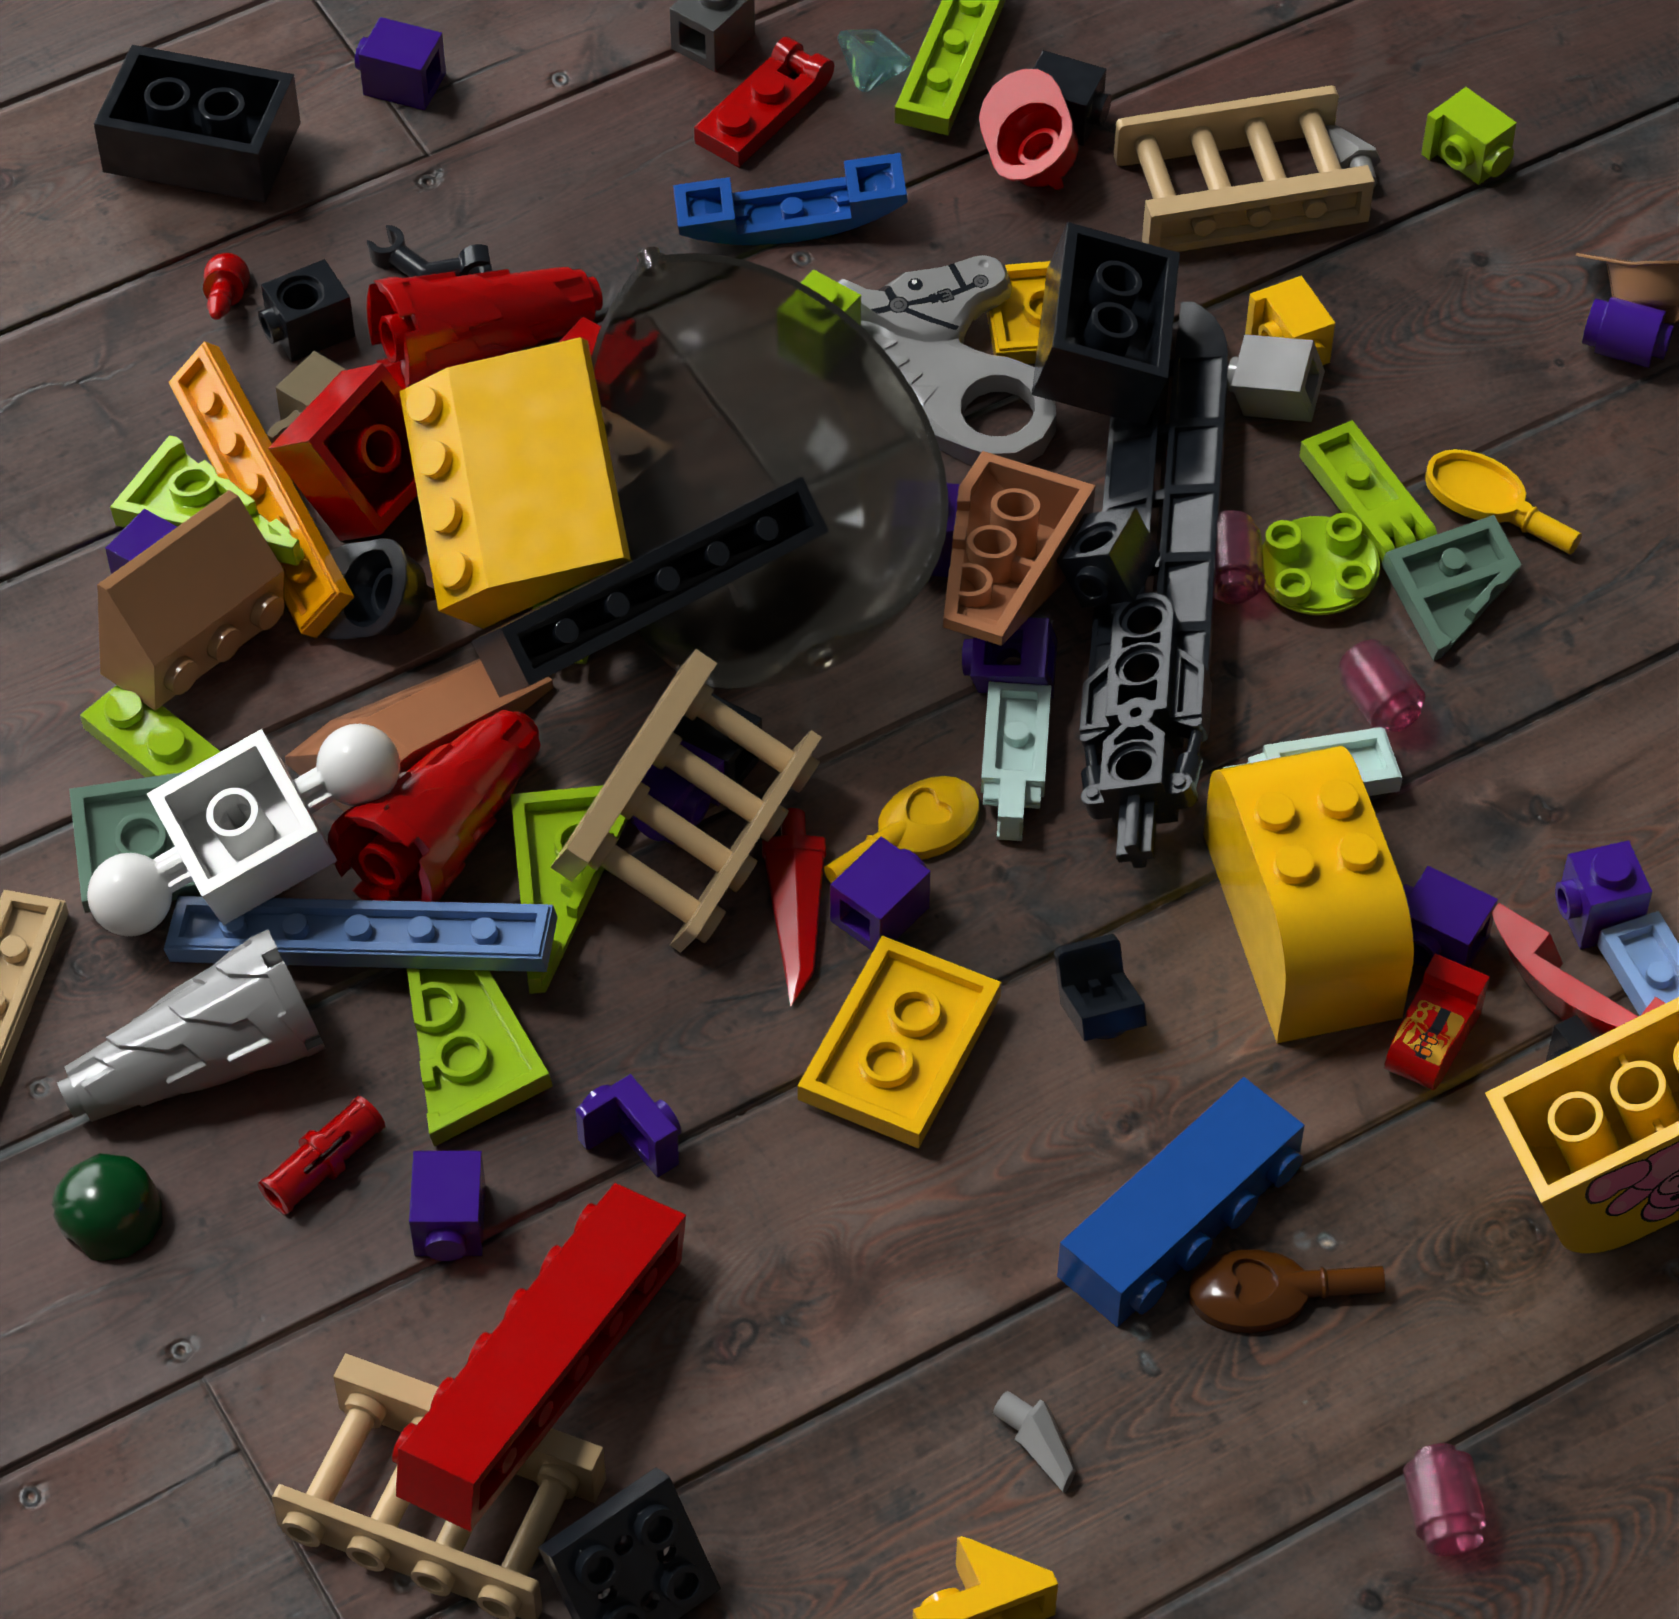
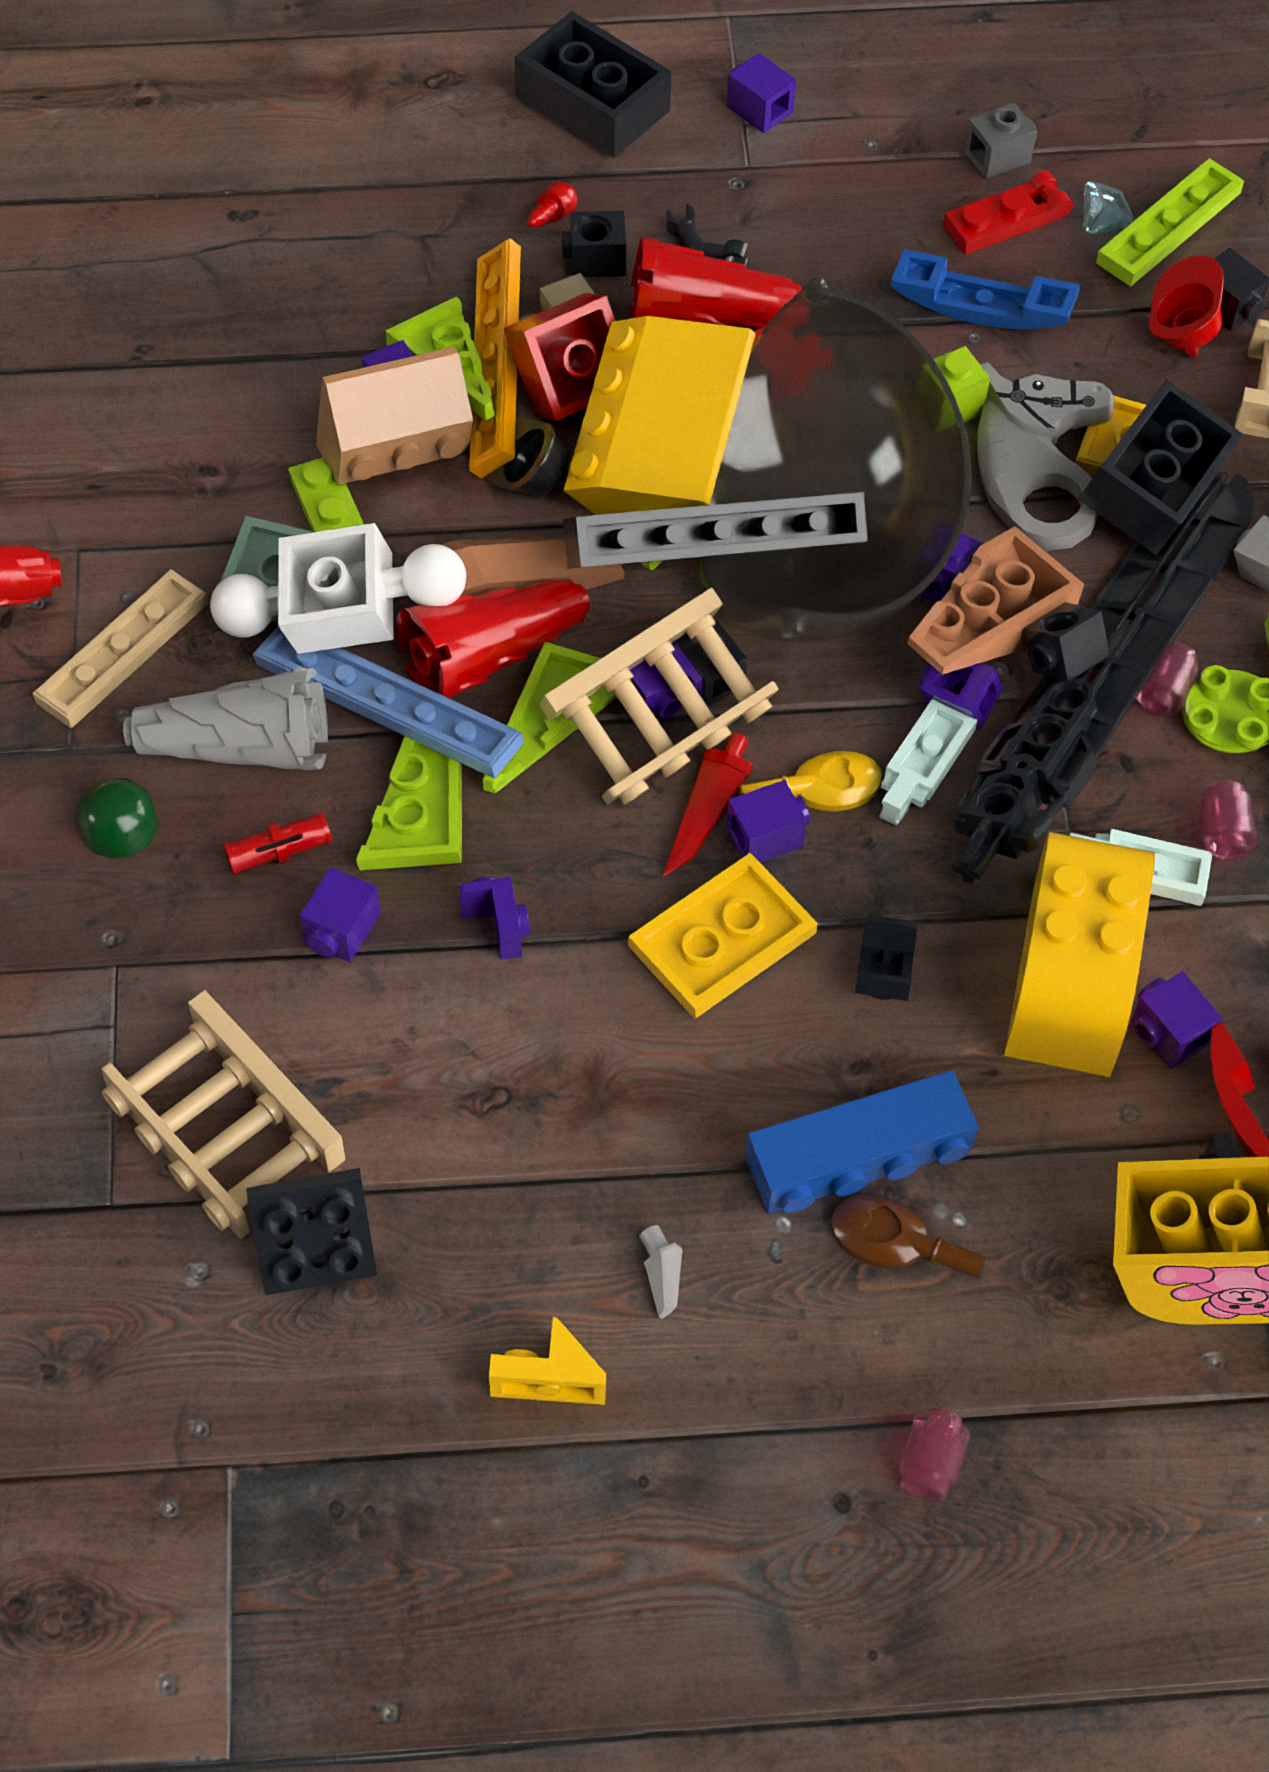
camera: 25 degrees right, 5 degrees up
(538, 1356) = (330, 1051): red brick -> none
(1437, 1022) = (1128, 1093): red leg -> none

